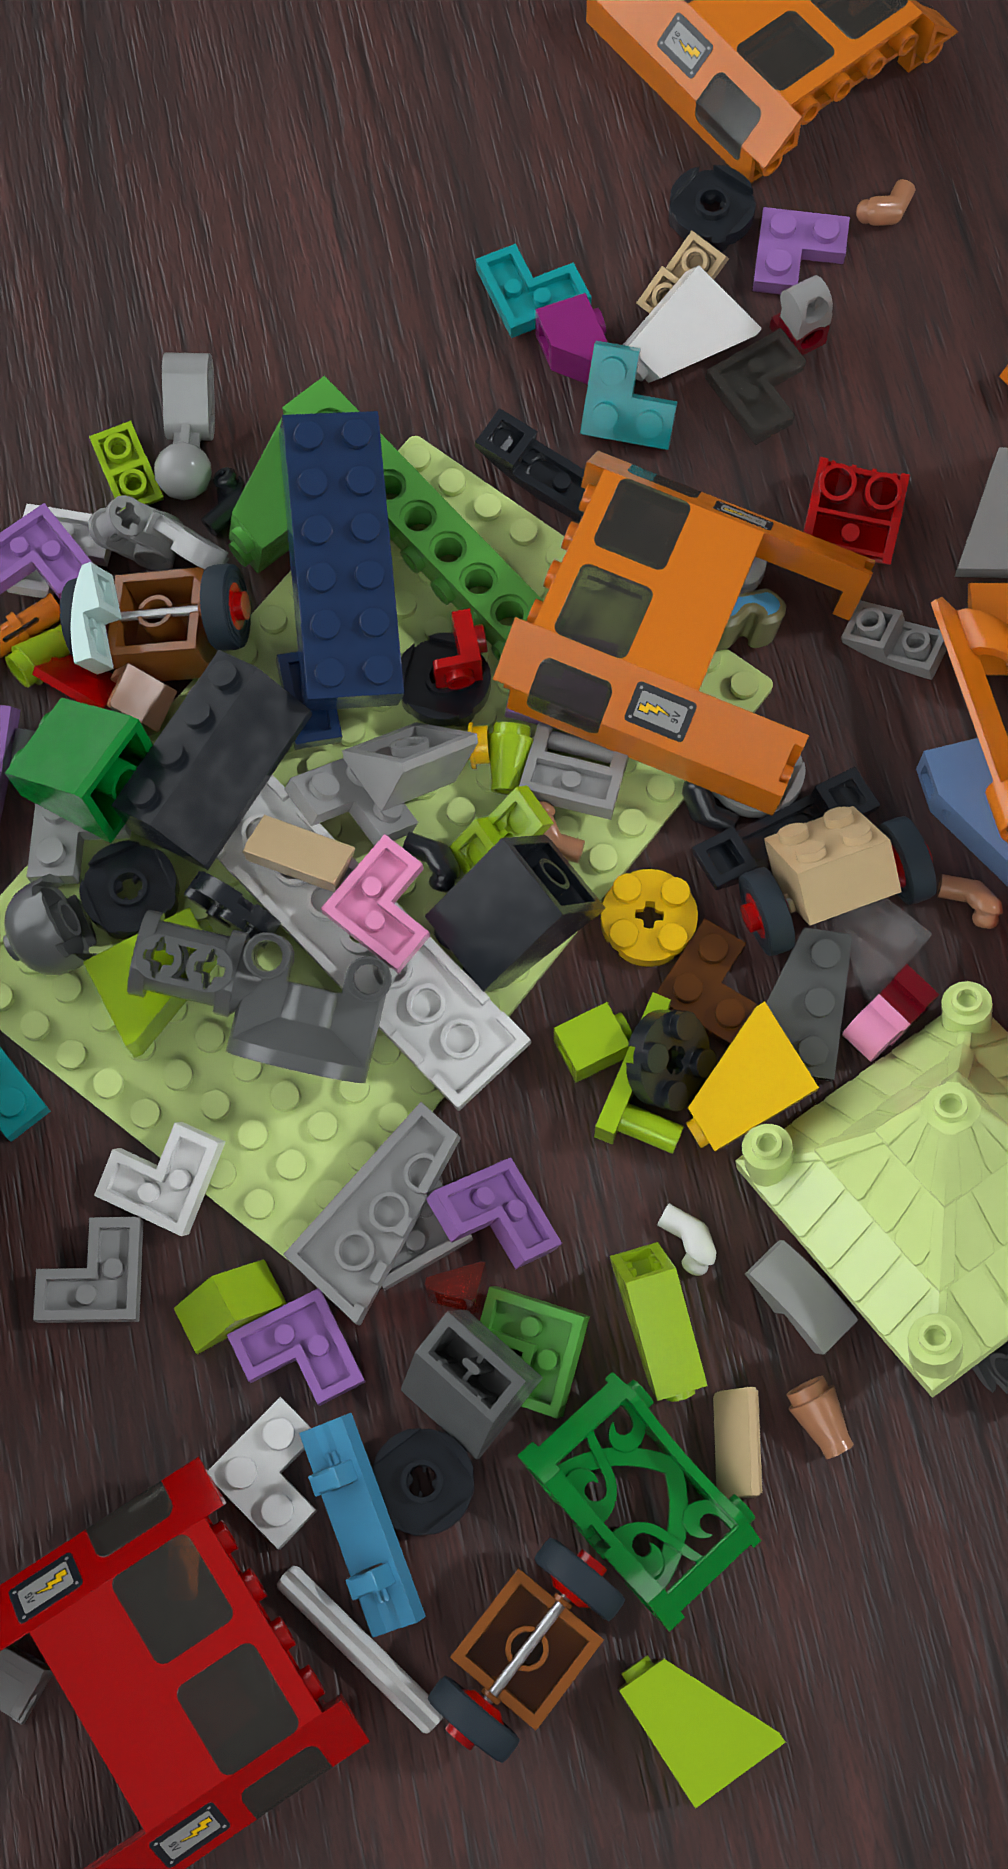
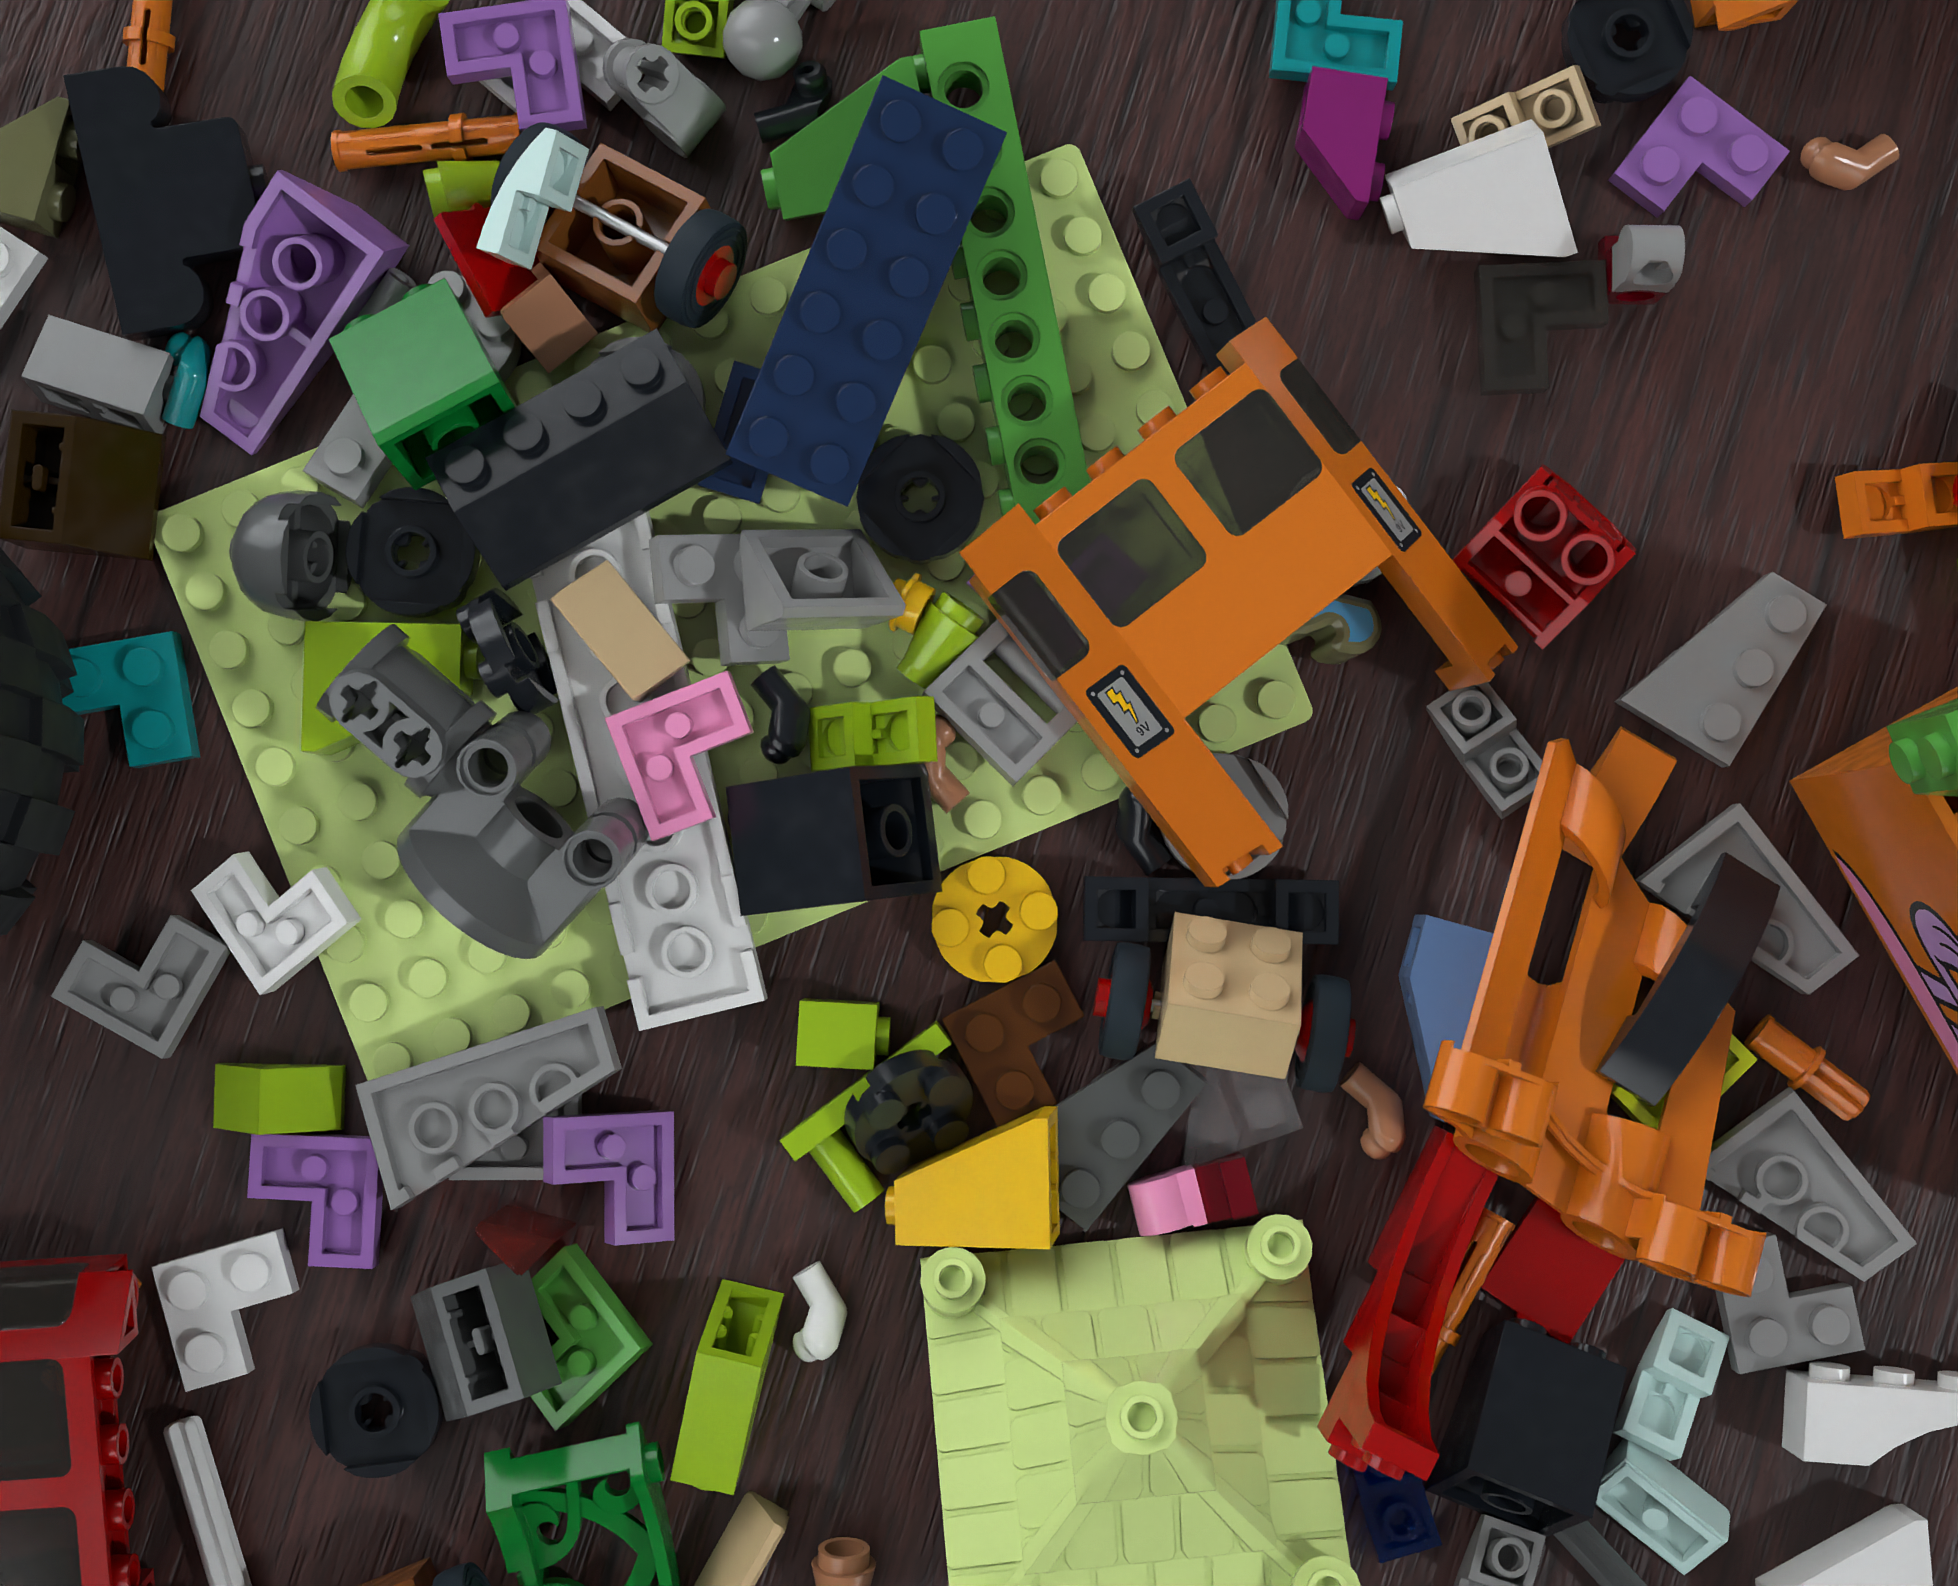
camera: 25 degrees right, 15 degrees up
(185, 541) = (711, 161): light grey piece -> none
(361, 1525) = (283, 1421): dark azure hinge -> none
(466, 667) = (966, 480): red bracket -> none
(614, 410) = (1334, 255): teal plate -> none
(802, 1295) = (899, 1450): light grey slope -> none

